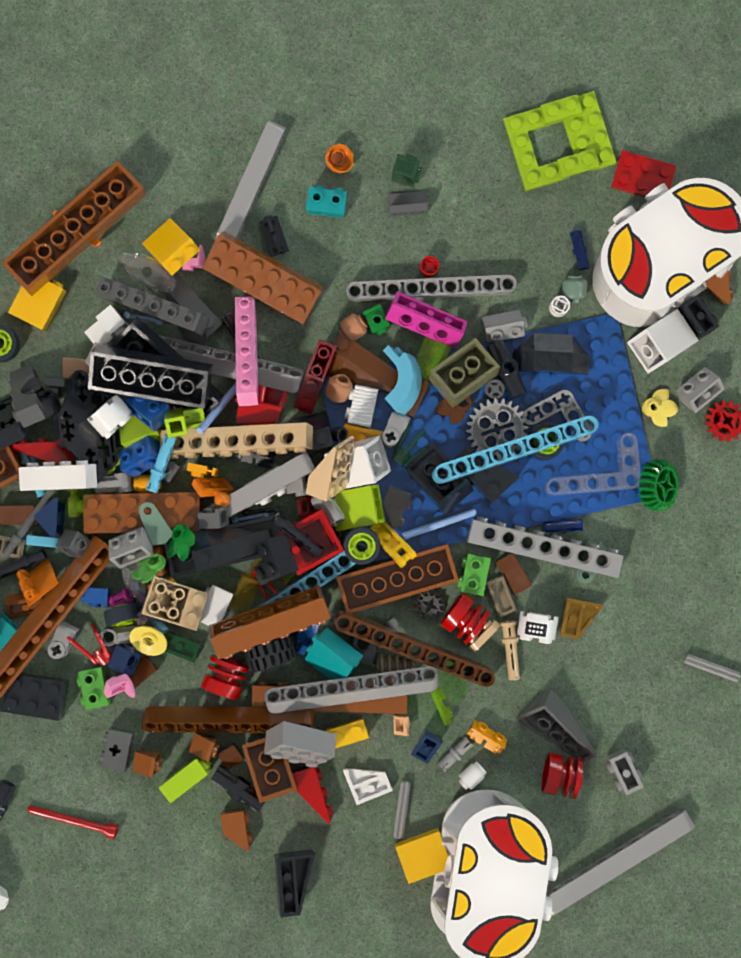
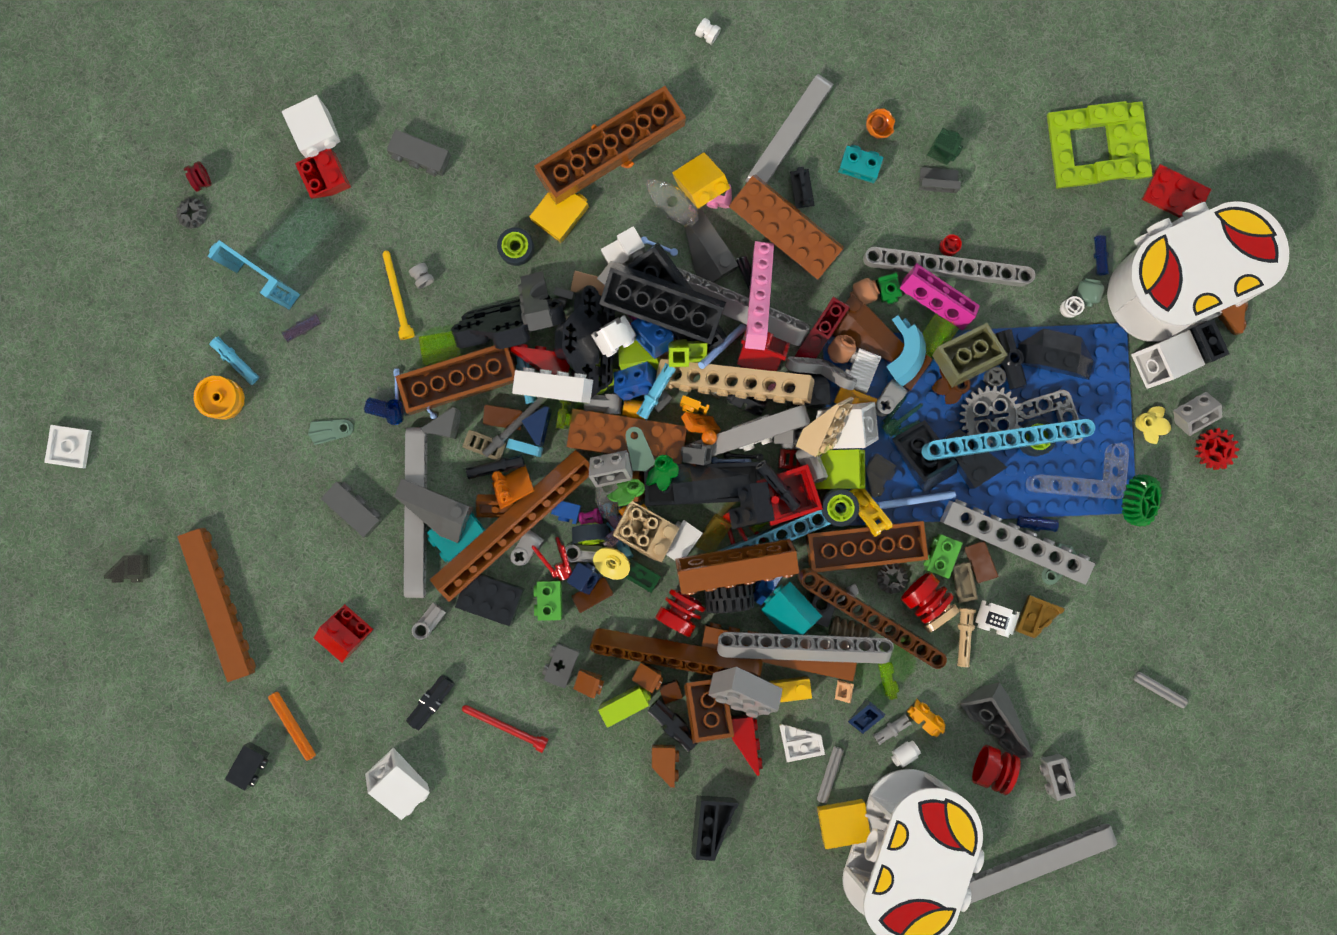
camera: 15 degrees right, 0 degrees up
(73, 543) = (553, 455): dark grey brick -> none
(119, 684) = (575, 601): bright pink plate -> none
(152, 306) = (672, 235): dark grey brick -> none
(153, 97) = (708, 31): none -> white wheel
(321, 409) = (823, 367): none -> light grey beam
(339, 434) = (836, 393): black hinge -> none
(504, 326) = (1014, 316): light grey brick -> none

